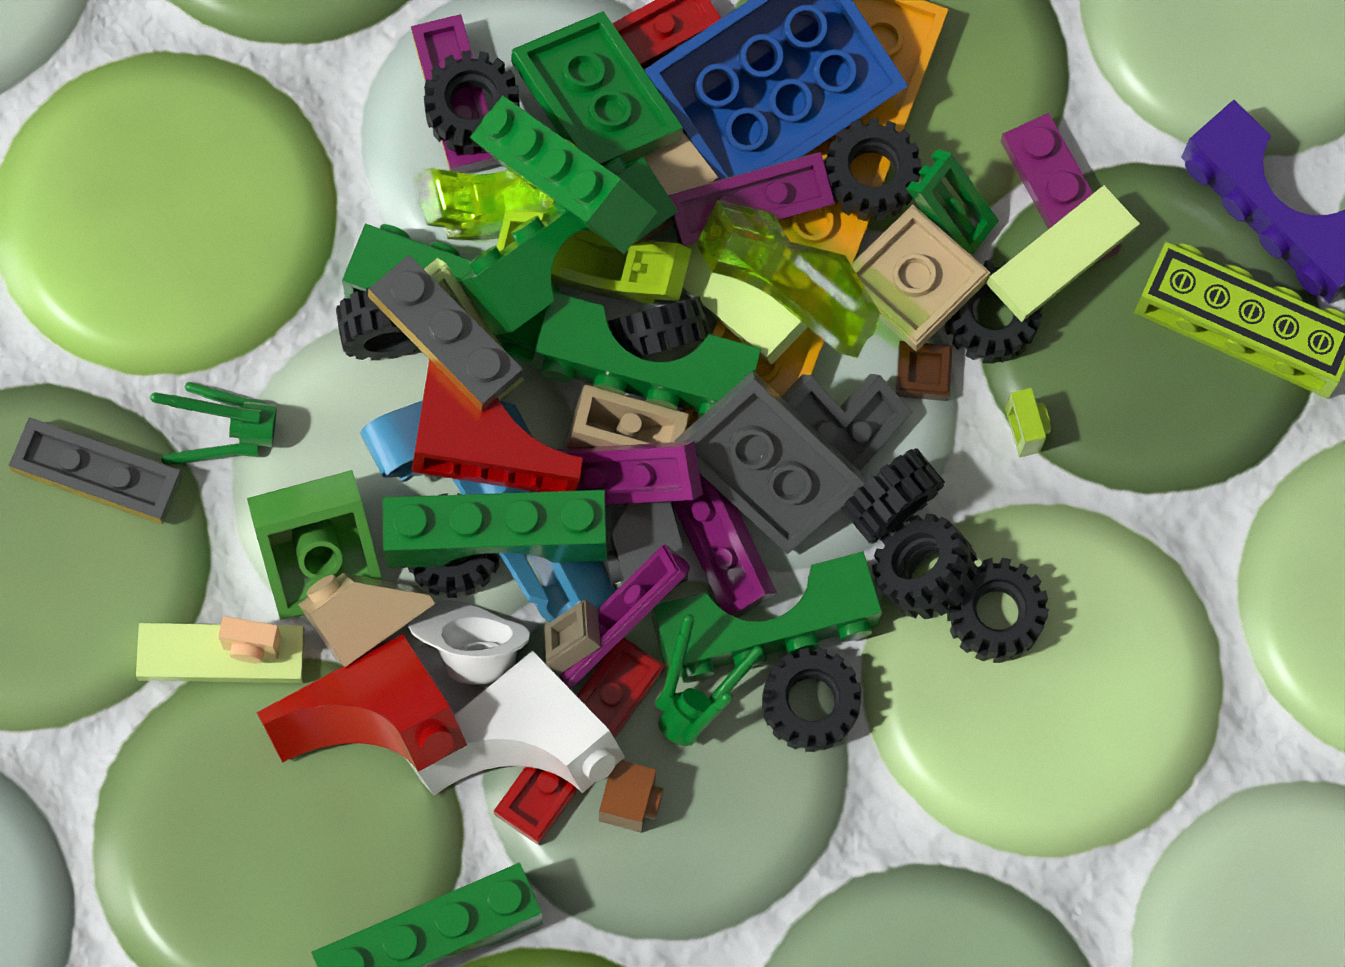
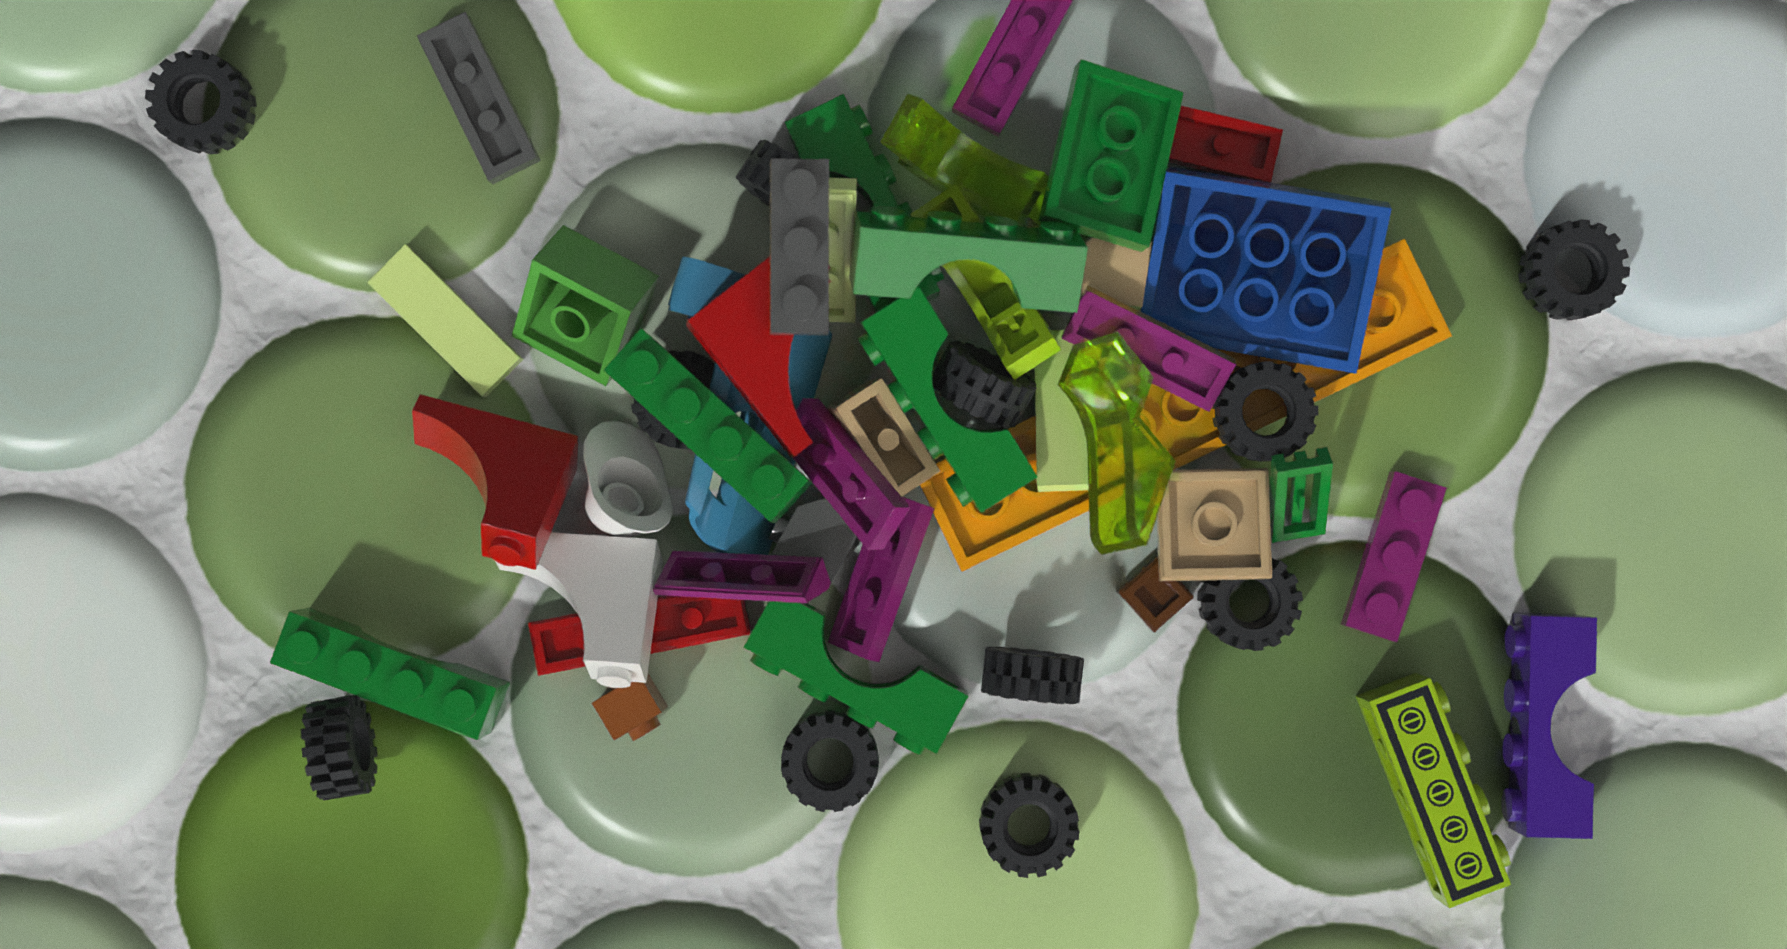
camera: 55 degrees right, 15 degrees up
(249, 421) = (623, 169): green plant -> none
(249, 639) = (462, 336): light nougat plate -> none
(360, 612) = (566, 390): tan slope -> none
(449, 81) = (1020, 39): black tyre -> none
(564, 174) = (1007, 225): green arch -> none
(572, 636) = (693, 558): dark tan tile -> none
(691, 711) = (730, 688): green plant -> none
(771, 462) = (963, 567): dark grey plate -> none
(856, 426) = (1040, 591): dark grey plate -> none
(939, 585) = (1007, 777): black tyre -> none
(1027, 422) = (1190, 709): lime plate -> none
(1062, 253) = (1343, 612): yellowish green tile -> none

